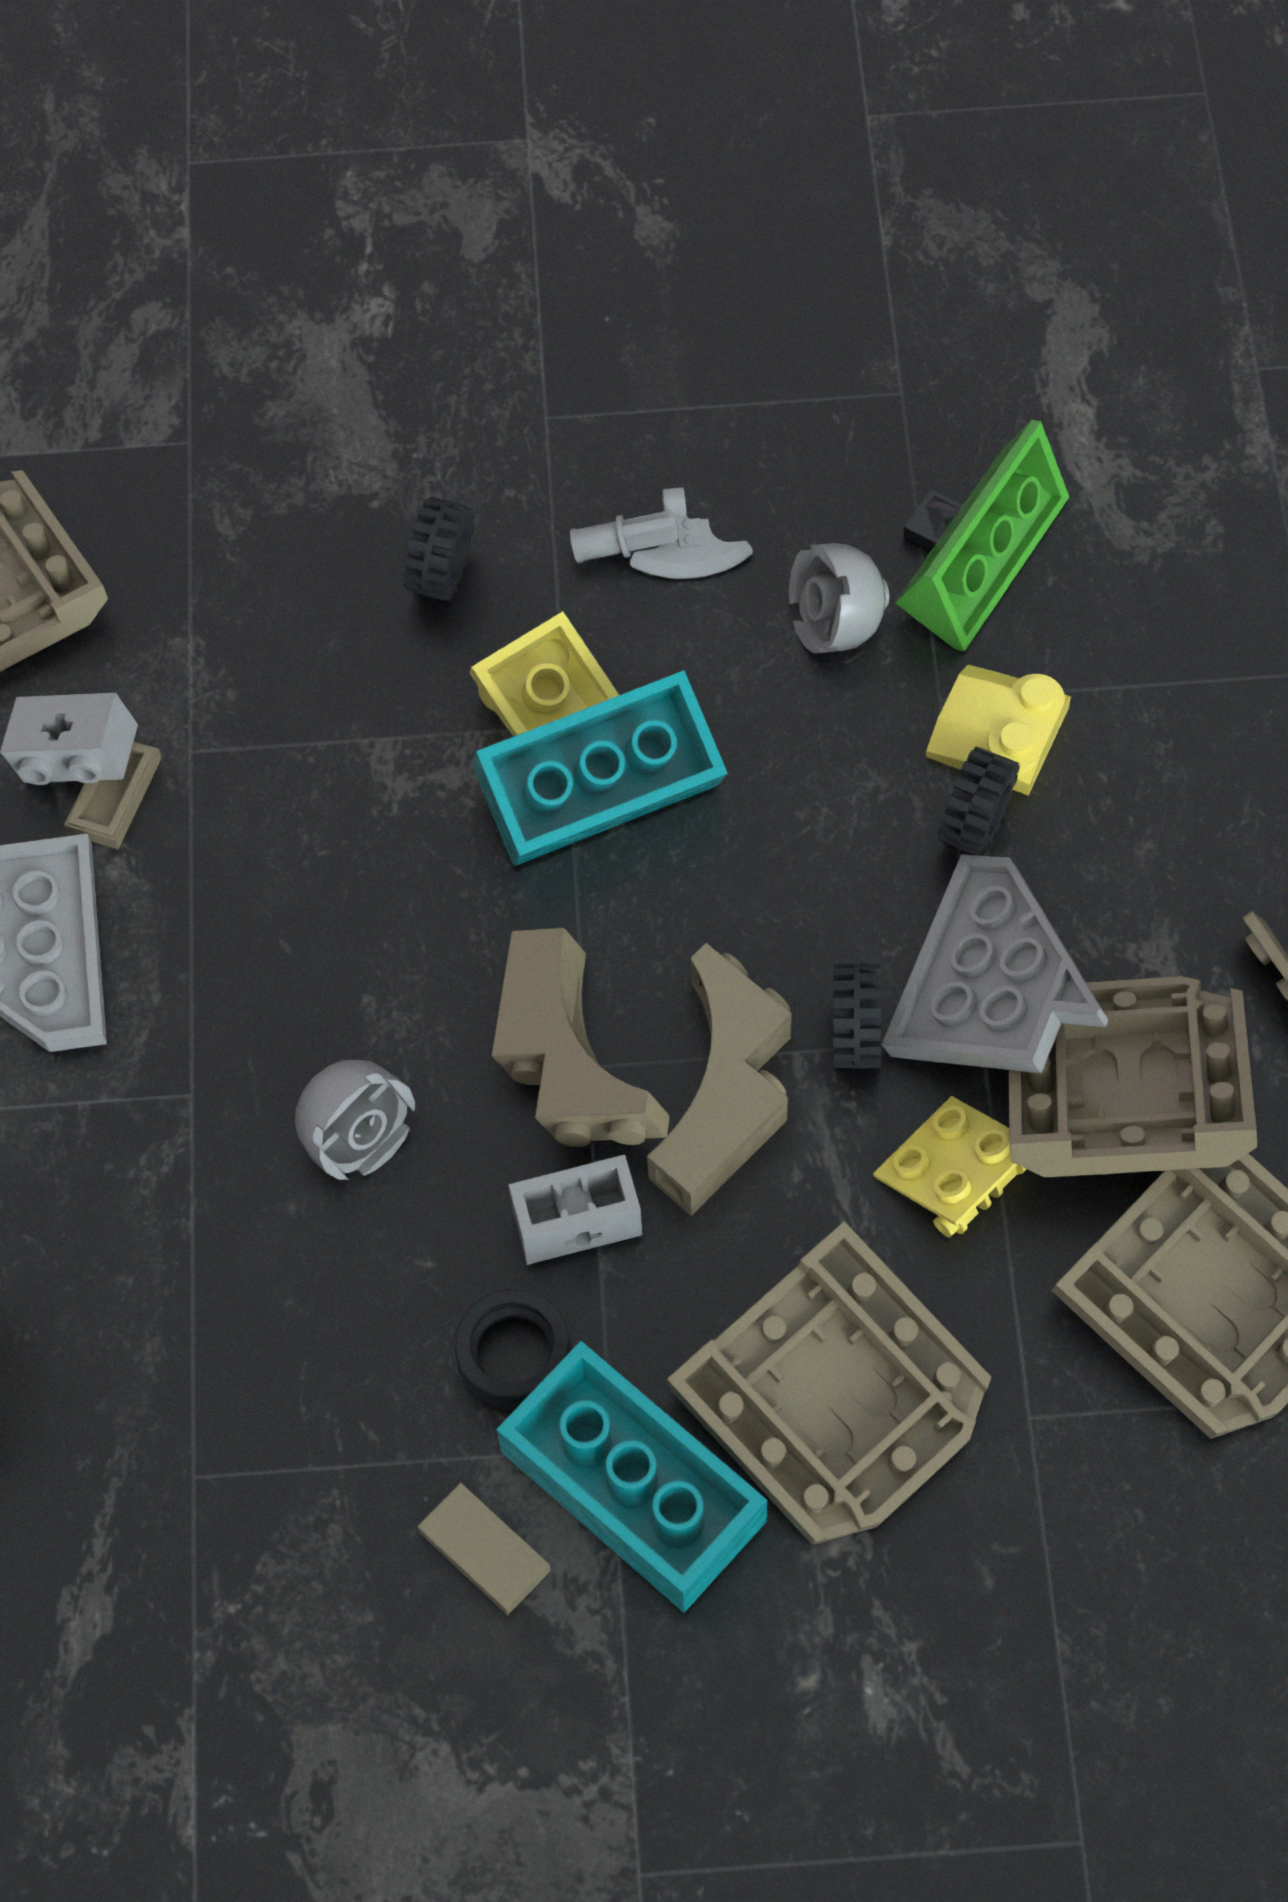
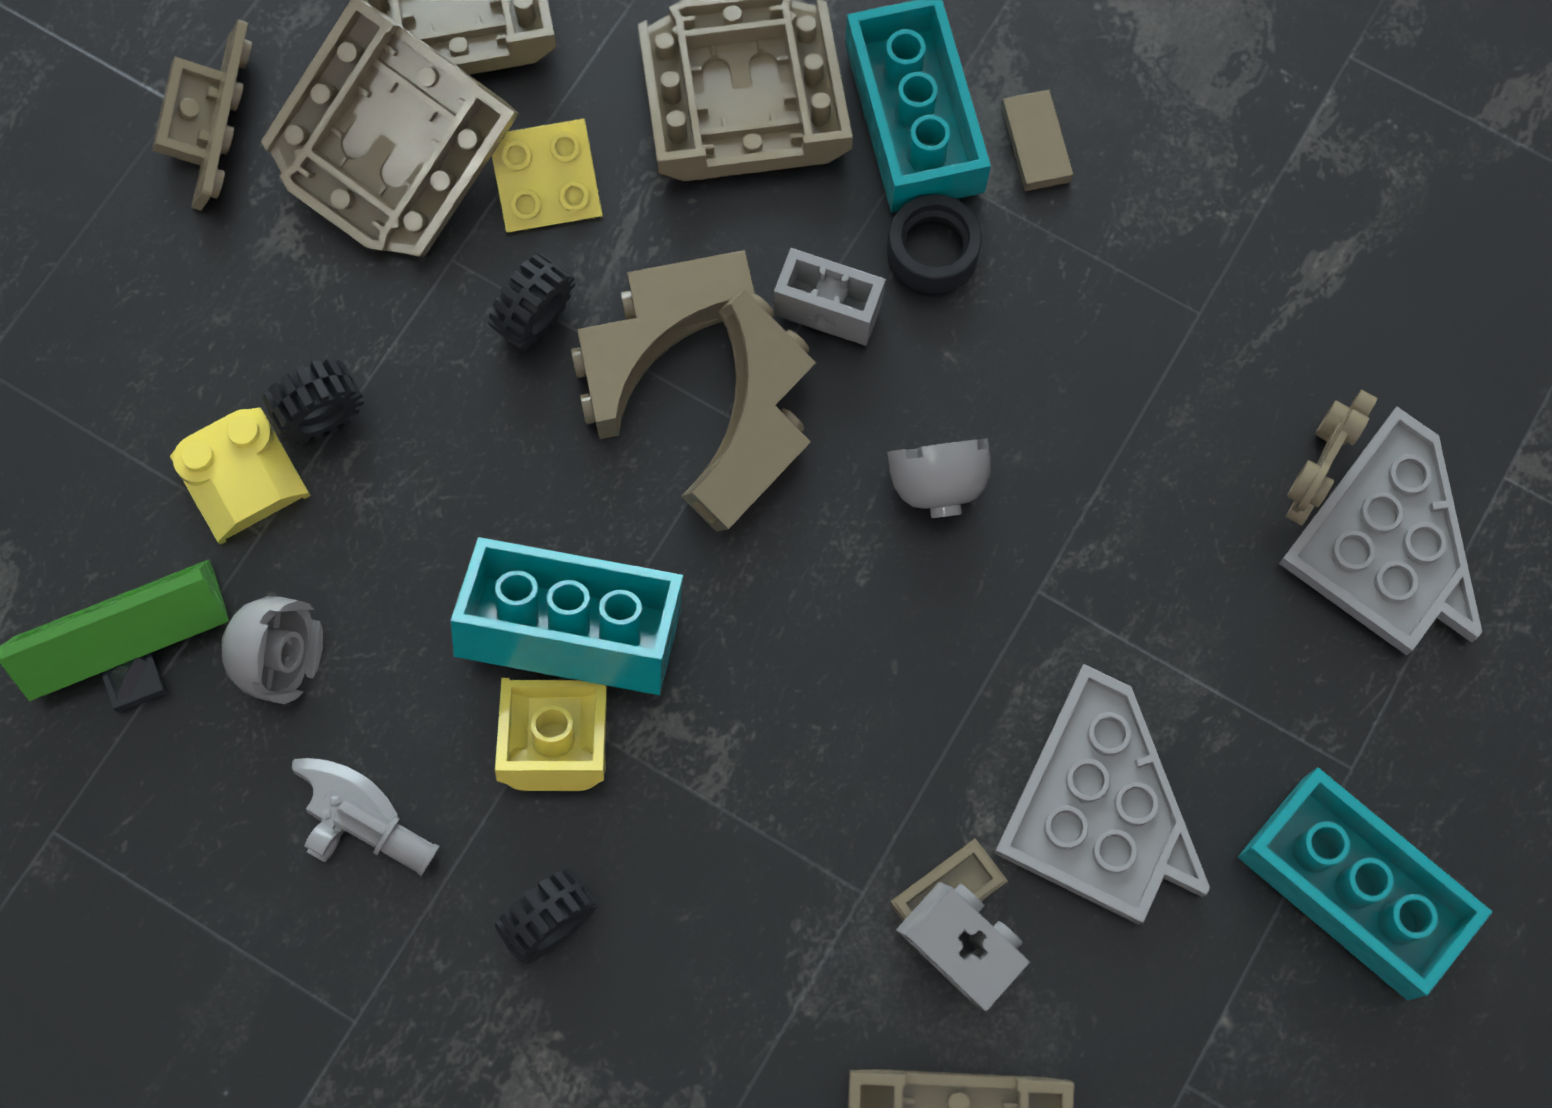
camera: 150 degrees left, 10 degrees up
(989, 977) = (415, 266): light grey wing -> none

